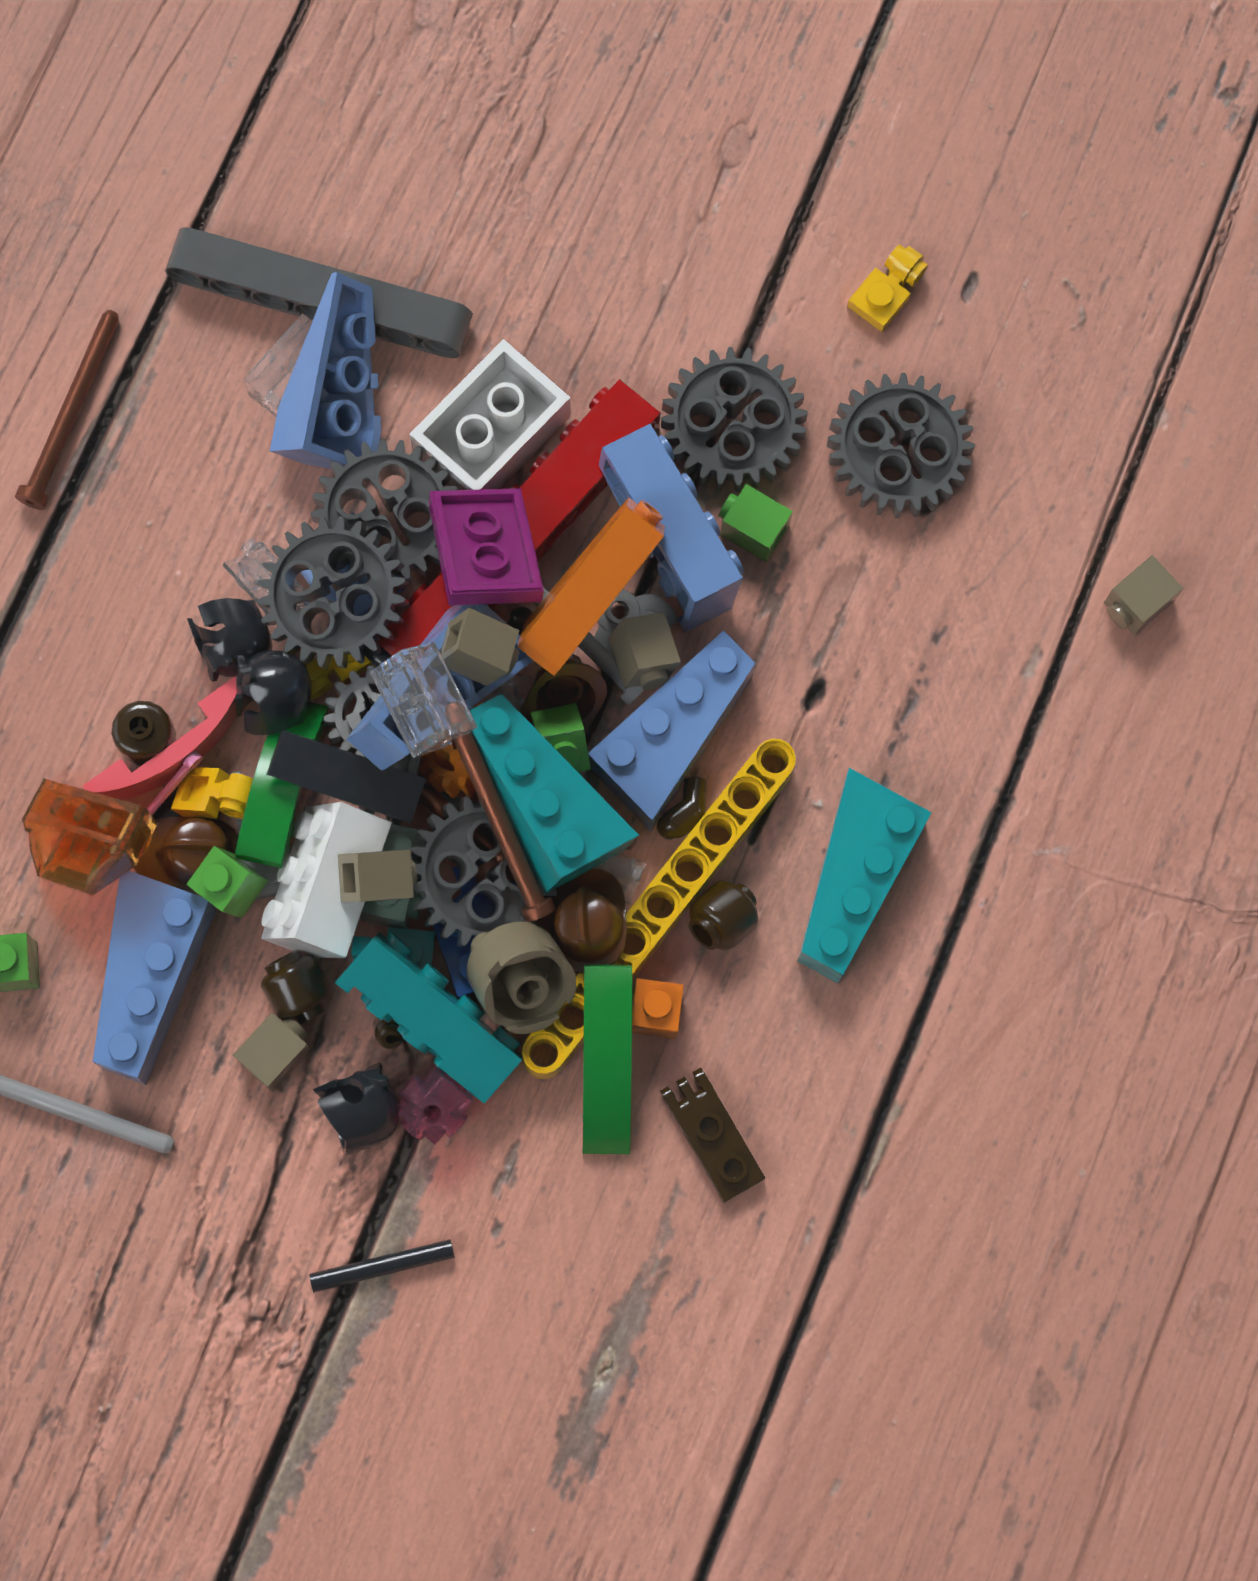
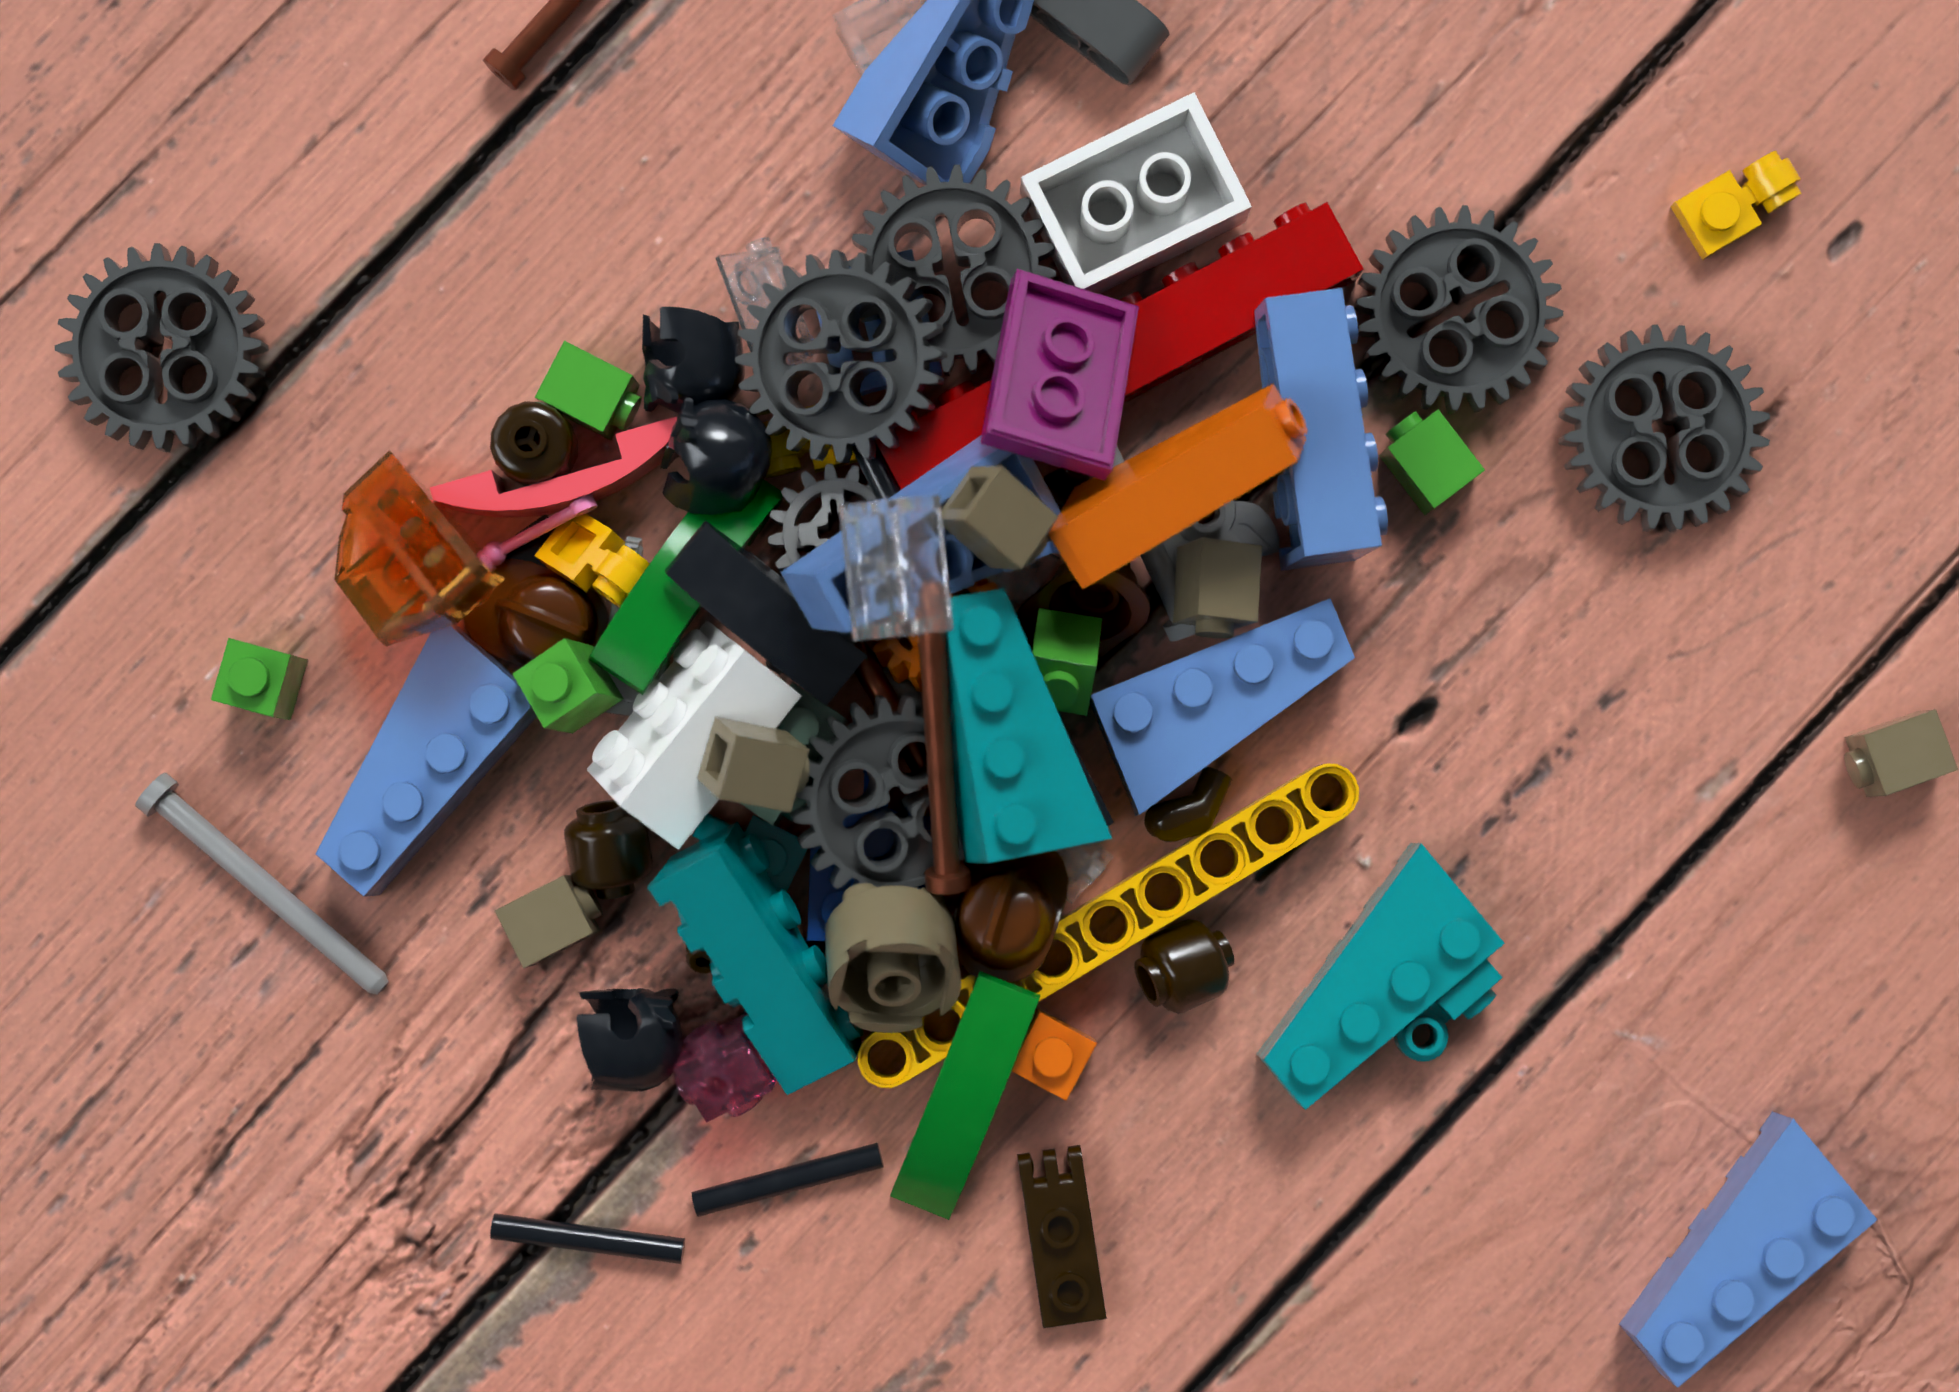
camera: 25 degrees right, 10 degrees up
(170, 684) = (590, 391): none -> bright green brick
(507, 1170) = (787, 1179): none -> black bar
(920, 862) = (1465, 998): none -> teal plate
(1182, 952) = (1746, 1252): none -> medium blue wedge

